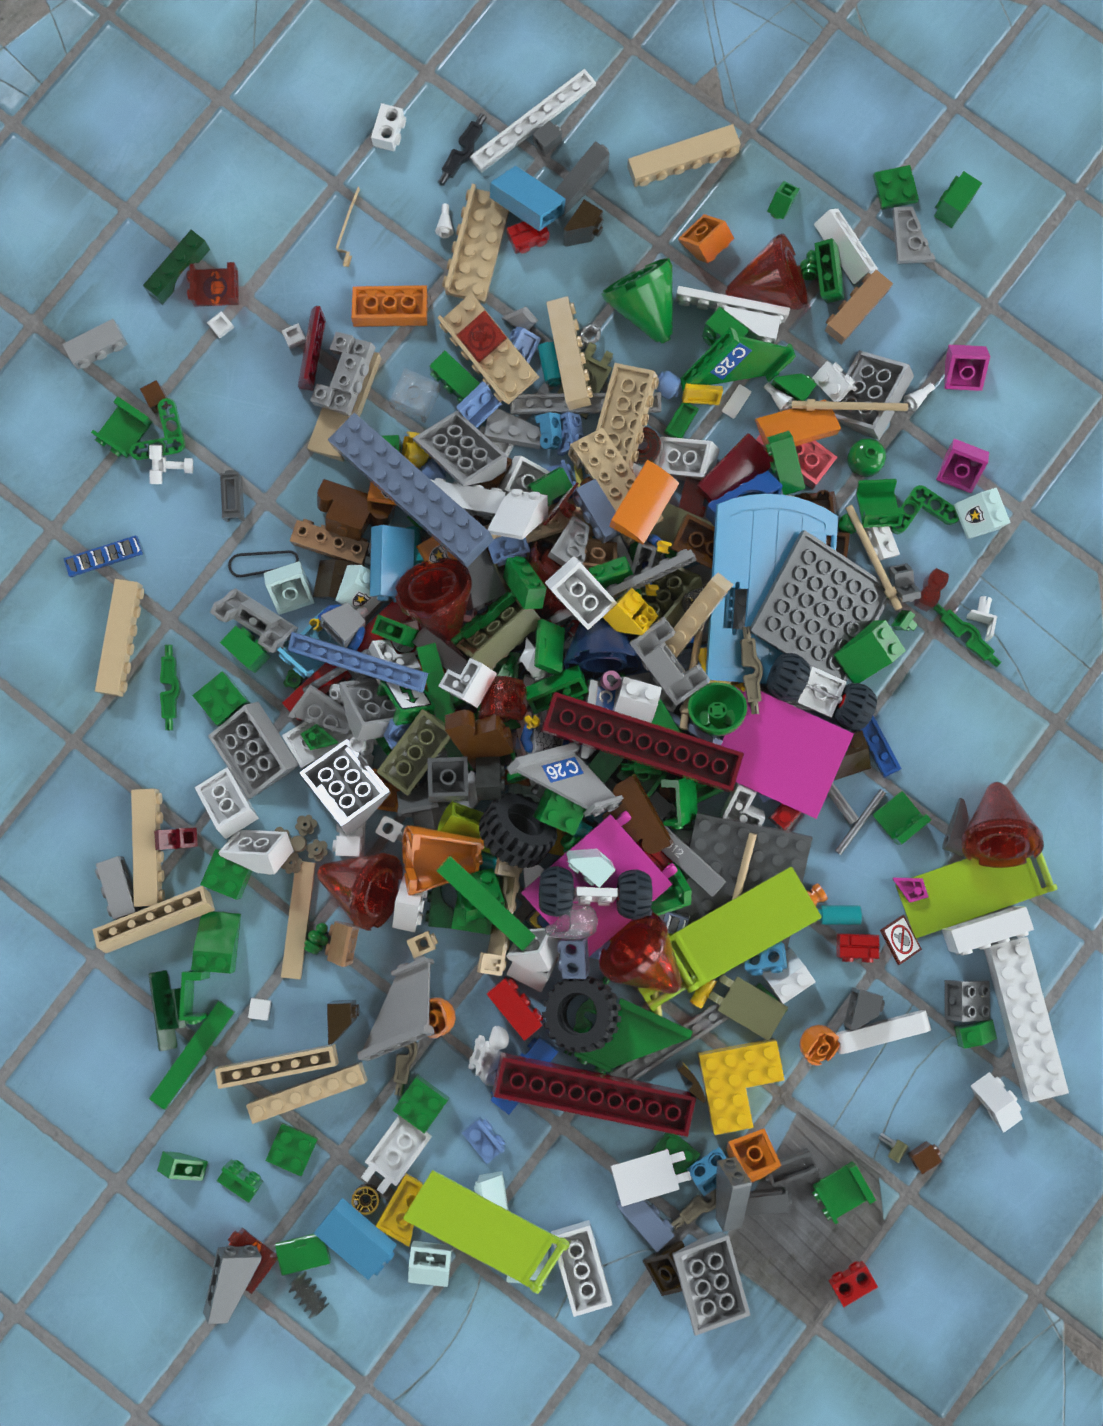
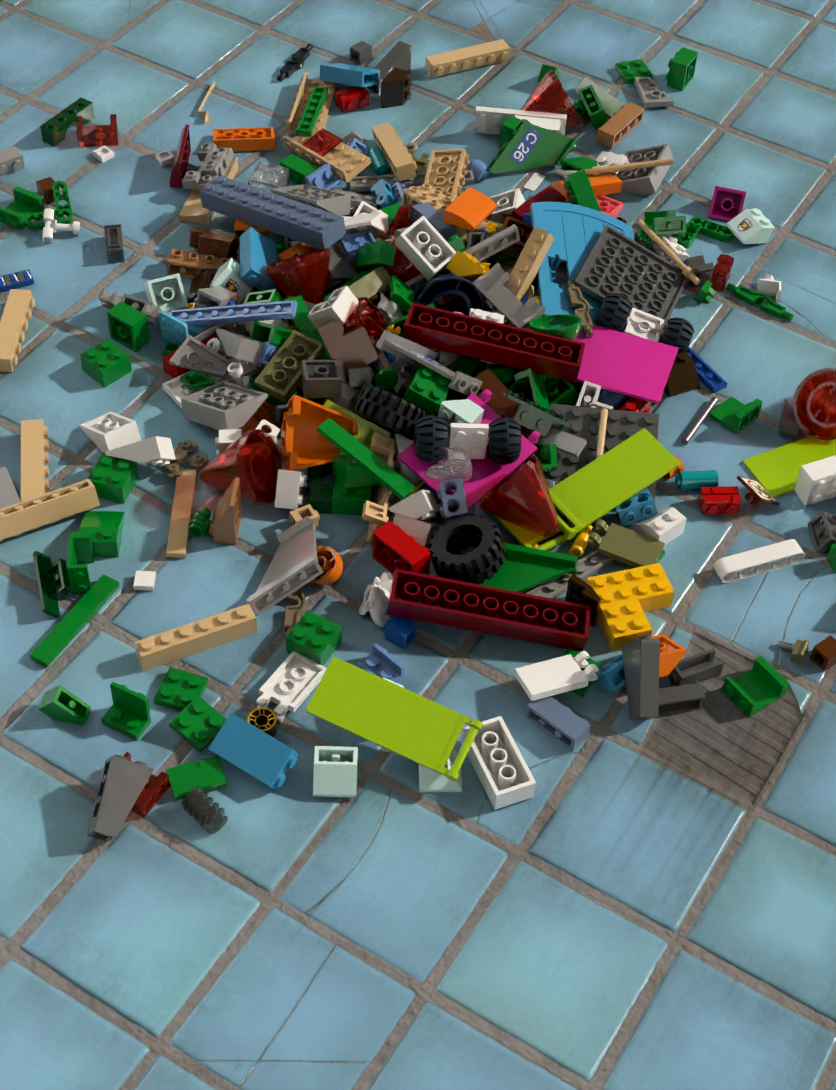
camera: 10 degrees left, 35 degrees down
(169, 698) = (58, 357): green piece -> none
(175, 838) = (65, 457): dark red brick -> none
(253, 749) = (135, 394): light grey slope -> none
(257, 553) = (133, 279): black piece -> none
(276, 1066) = (162, 615): tan brick -> none
(307, 1194) = (198, 723): none -> green plate
(340, 1017) = (230, 571): dark brown slope -> none
(386, 127) = (236, 51): white brick -> none
(392, 1219) = (301, 732): yellow wing -> none
(444, 227) = (285, 98): white cone -> none
(474, 270) = (312, 111): none -> green tile
(532, 120) = (343, 50): white tile -> none
(646, 299) = (450, 116): green cone -> none
(663, 1269) = (592, 761): dark brown slope -> none
(674, 846) = (534, 418): none -> dark green bracket
(681, 420) = (493, 188): green tile -> none
(694, 1209) = (610, 711): dark tan piece -> none
(702, 394) = (506, 172): yellow tile -> none
(706, 238) = (495, 96): orange slope -> none
(711, 1283) = (639, 758): light grey slope -> none
(818, 1044) = (701, 566): orange cylinder -> none
(842, 804) = (678, 407): light grey axle -> none
(855, 1288) = (788, 758): red brick -> none
(862, 1008) = (737, 533): dark grey slope -> none
(866, 457) = (647, 201): green cylinder -> none
(869, 651) = (682, 302): green slope -> none
(912, 888) = (758, 458): dark pink piece -> none
(916, 398) = (678, 172): white cone -> none
(966, 367) = (714, 153): dark pink slope -> none

